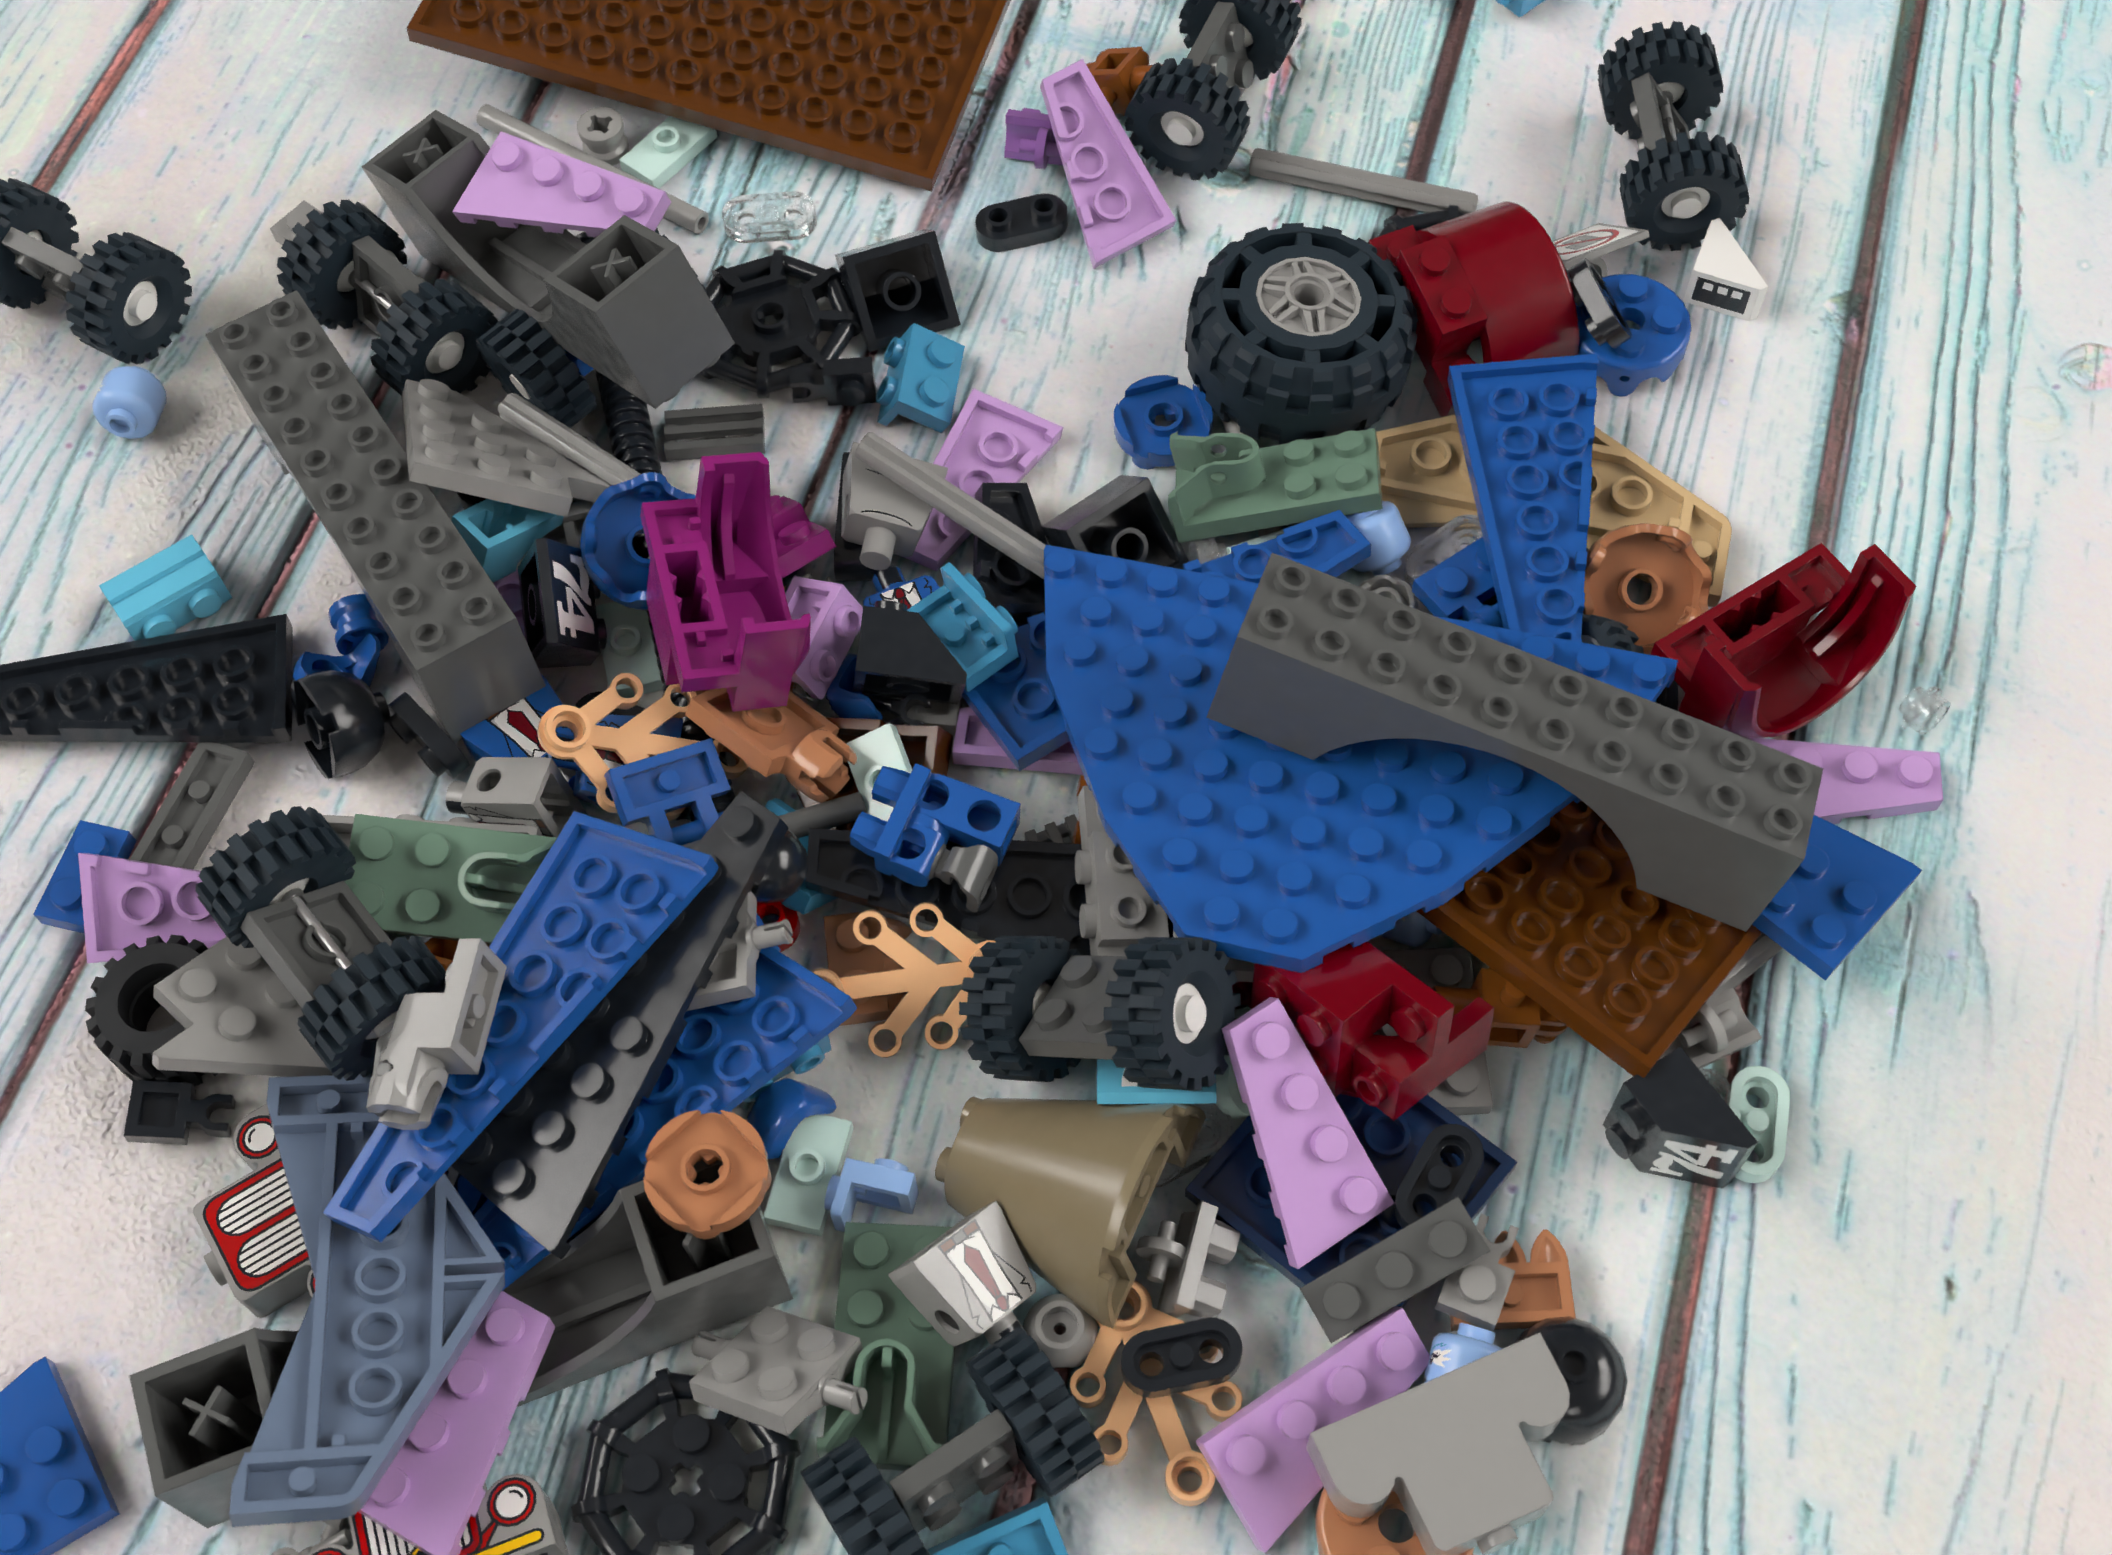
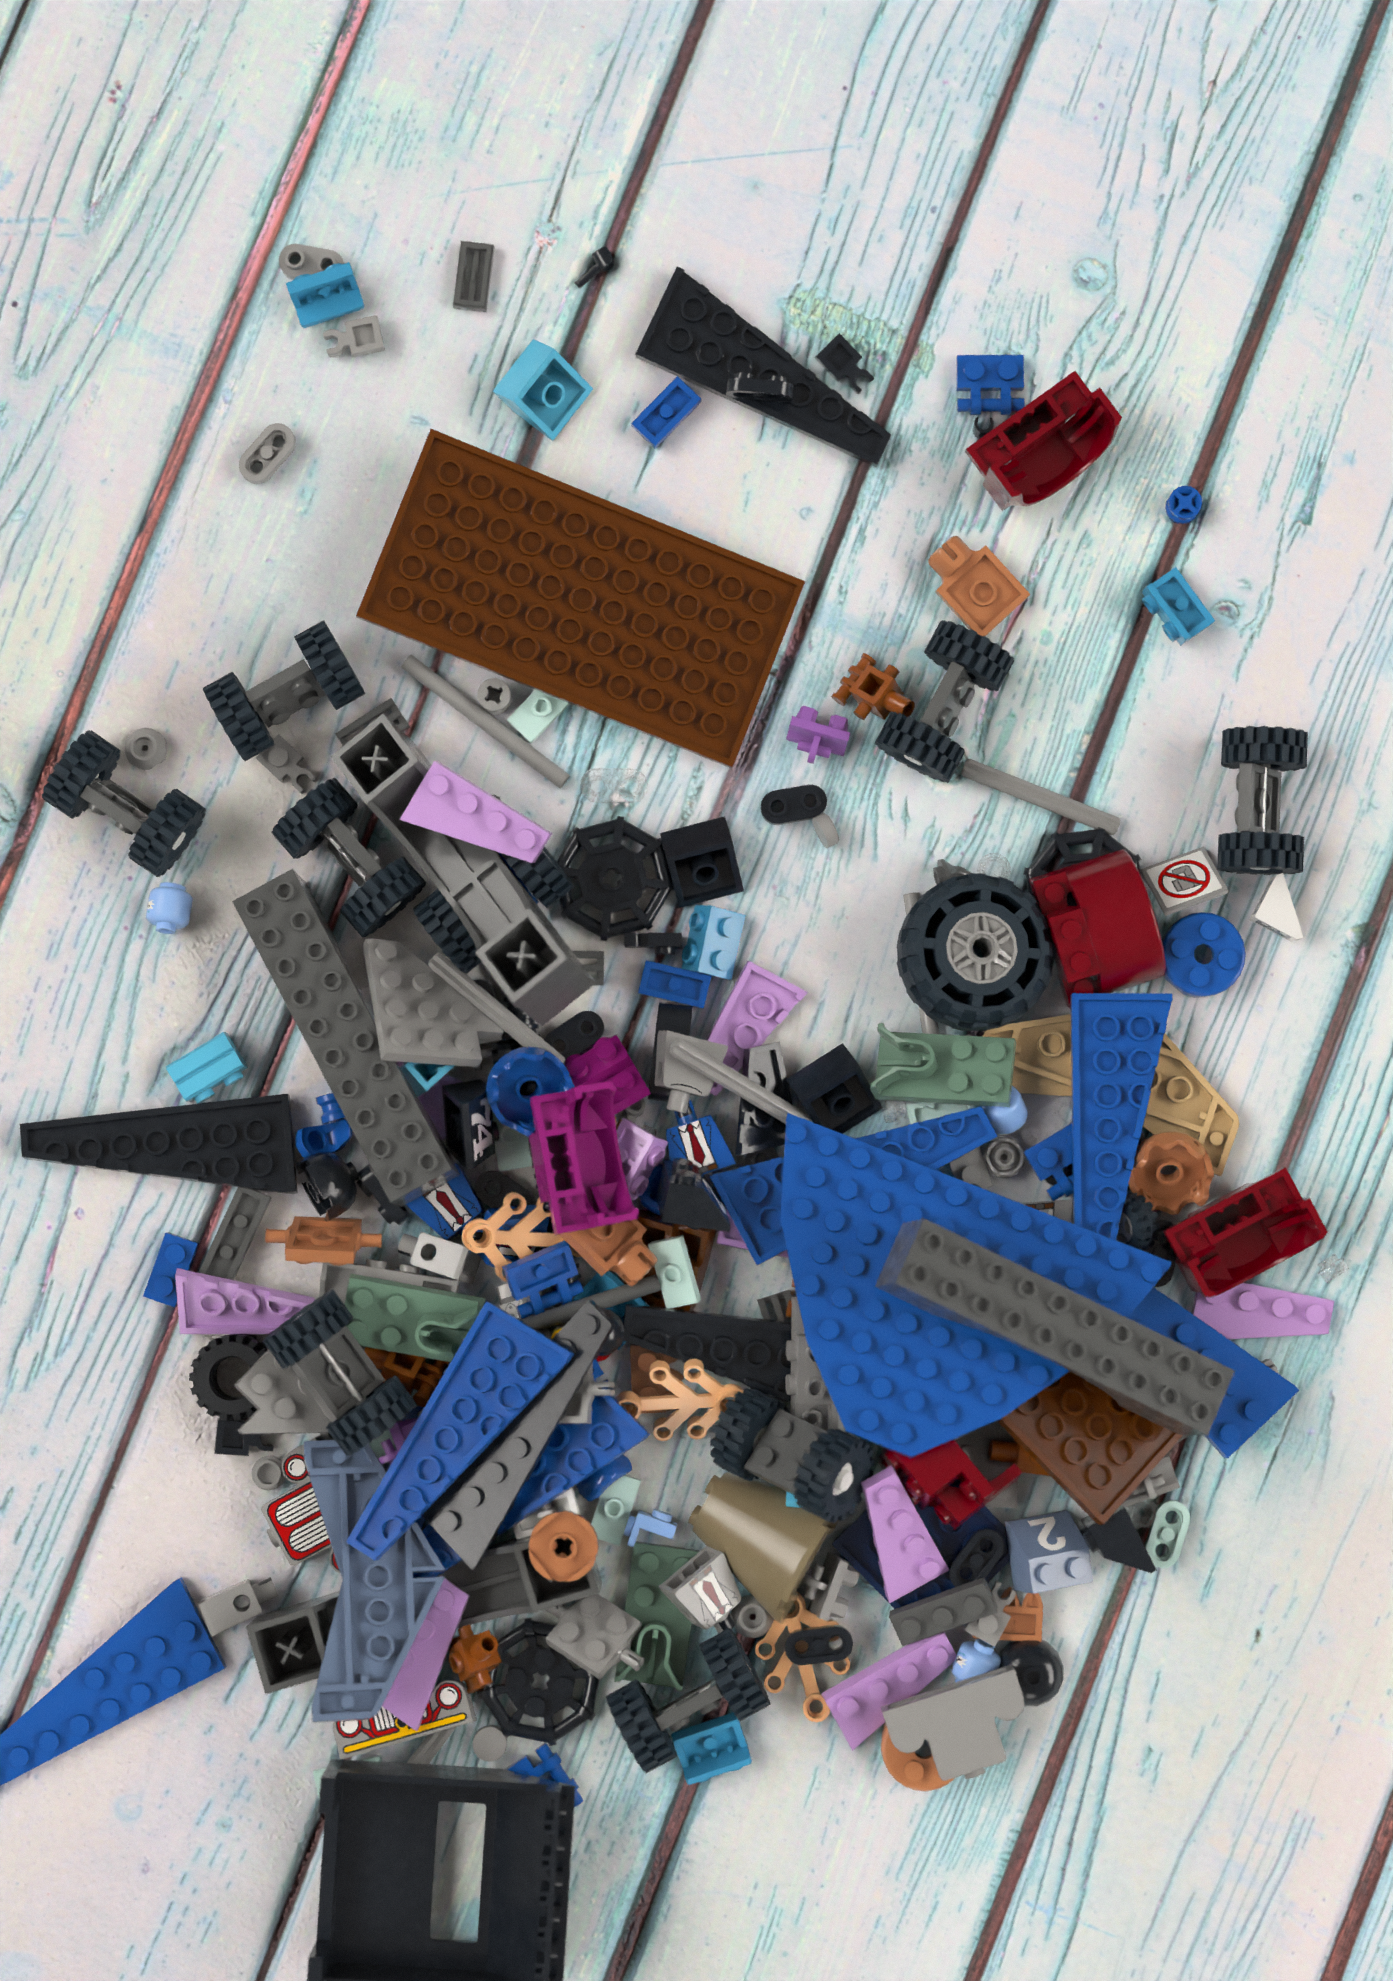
camera: 10 degrees right, 25 degrees up
(101, 1387) = (221, 1612): none -> light grey torso
(116, 221) = (156, 748): none -> light grey plate
(215, 1167) = (268, 1473): none -> light grey plate
(305, 131) = (284, 693): none -> black plate
(342, 796) = (322, 1241): none -> nougat plate
(436, 1038) = (408, 1452): light grey plate -> none
(561, 1429) = (474, 1657): none -> dark orange piece
(843, 425) = (674, 984): none -> blue plate
(924, 817) = (699, 1312): blue hips -> none
(969, 625) = (728, 1173): dark azure bracket -> none
(1068, 239) = (825, 830): none -> light grey tile
(1105, 174) = (856, 784): lavender wing -> none
(1157, 396) = (859, 983): blue plate -> none
(1560, 1166) = (1047, 1553): none -> sand blue slope
(1606, 319) = (1181, 956): black plate -> none

